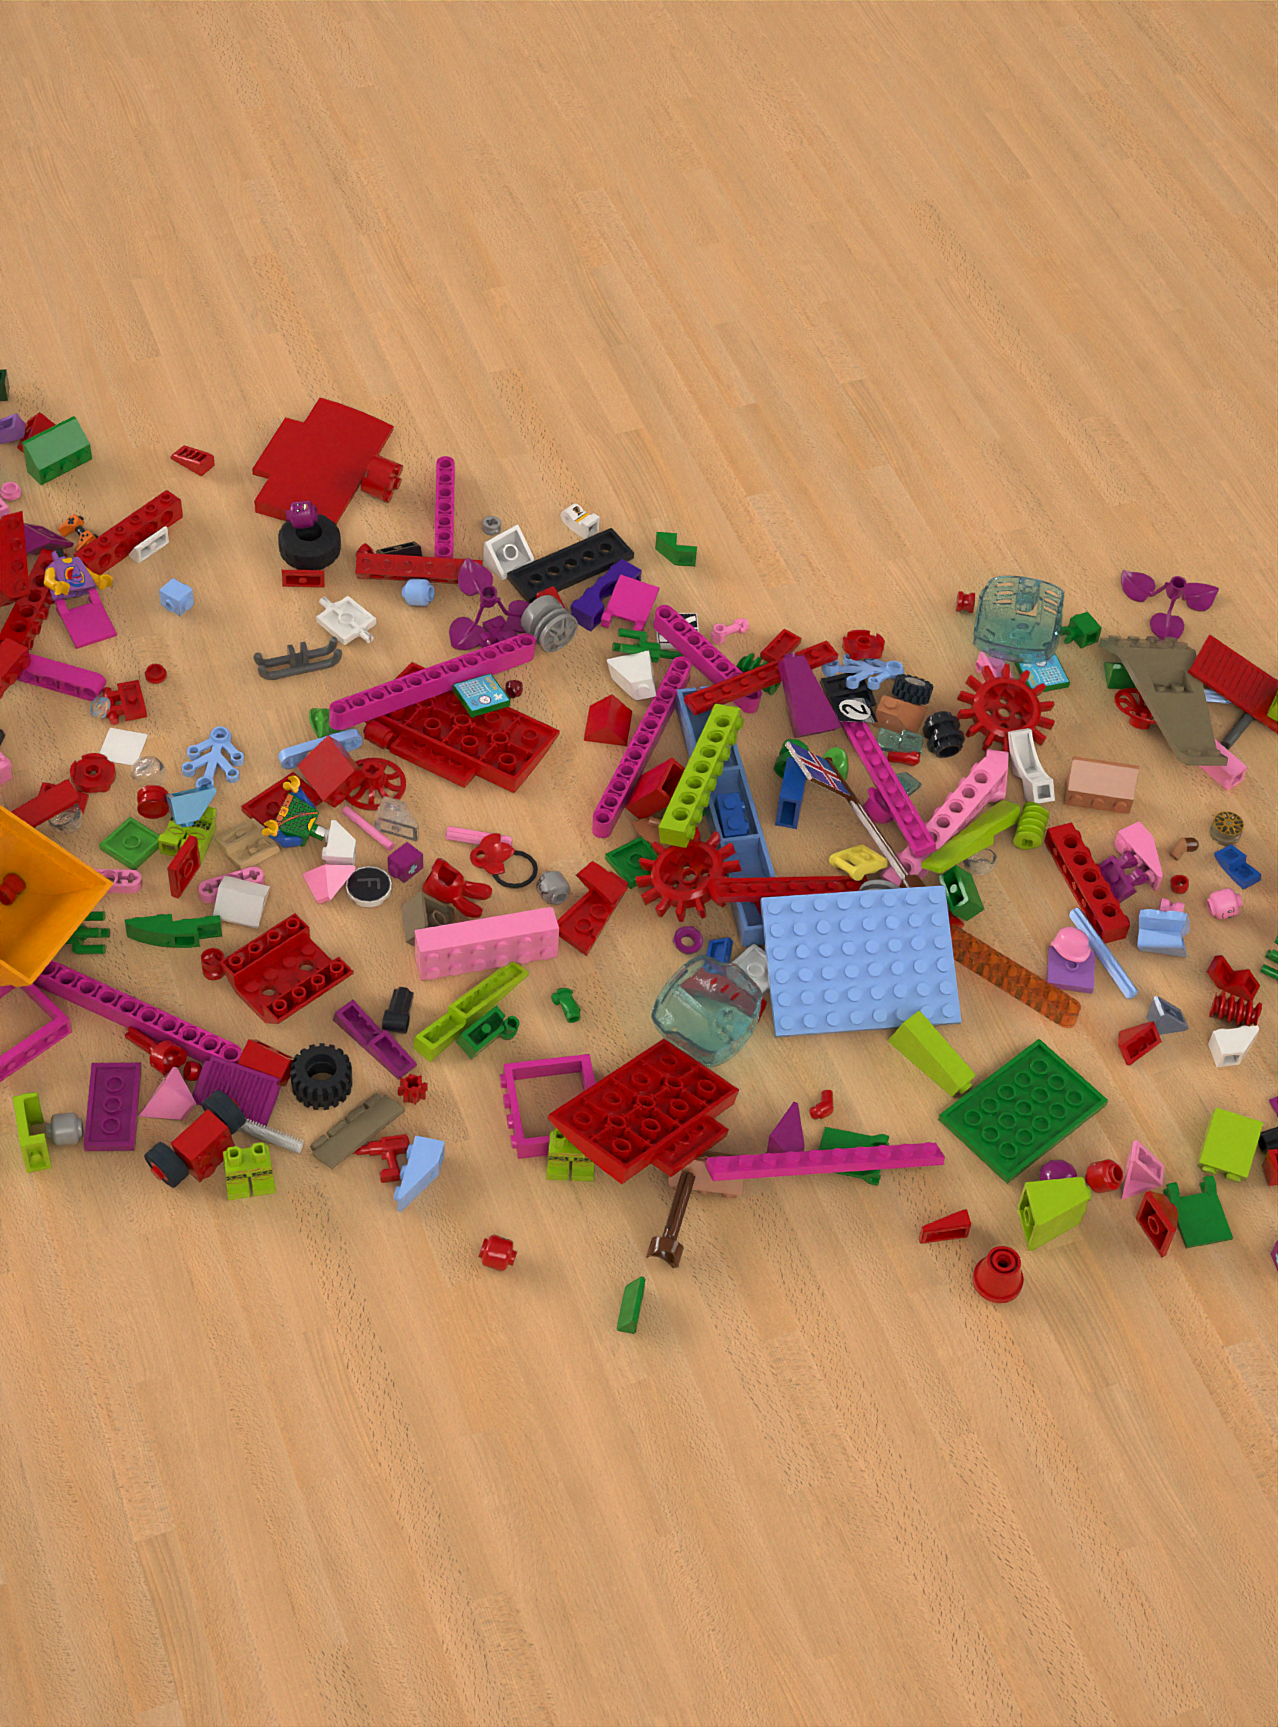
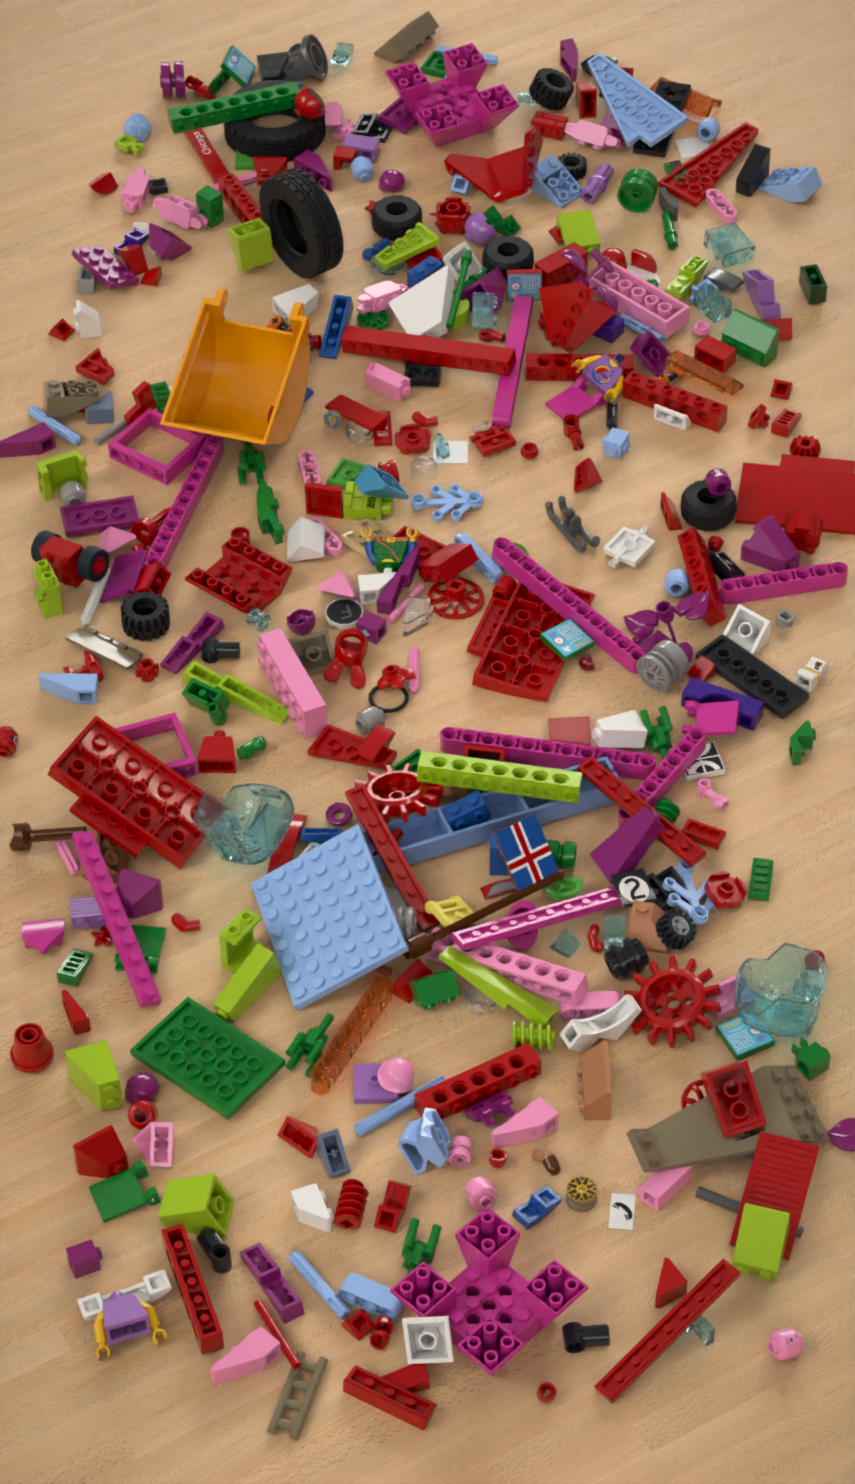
camera: 85 degrees right, 5 degrees down
(61, 759) = (424, 421): none -> red arm
(66, 486) = (715, 353): none -> red brick
(93, 502) = (703, 373): none -> clear orange slope
(121, 748) = (442, 447): none -> clear light blue slope
(123, 593) = (611, 419): none -> black axle
(137, 628) = (572, 430): none -> red pin
(138, 452) = (781, 389): none -> red slope
(179, 476) = (759, 417): none -> red tile
(216, 635) = (586, 475): none -> red slope
(245, 452) = (805, 446): none -> red gear
(360, 965) = (258, 619): none -> clear light blue wheel
(366, 838) = (403, 578): none -> magenta slope
(376, 924) = (301, 621): none -> magenta hair
(394, 507) = (770, 547): none -> magenta slope
(570, 1034) = (217, 754): none -> red torso
(693, 1211) = (67, 856): none -> bright pink axle
(795, 1196) = (86, 913): none -> medium lavender brick
(818, 823) = (497, 888): none -> sticker
(818, 1248) = (43, 934): none -> dark pink slope
(828, 1190) = (102, 936): none -> red plant
(839, 613) = (765, 868): none -> green slope
(868, 1229) = (74, 979): none -> green slope
(879, 1046) = (237, 940): none -> lime panel
(1023, 1011) = (309, 1045): none -> green plant
(1157, 674) = (734, 1098): none -> red slope
(1241, 806) = (622, 1211): none -> white sticker

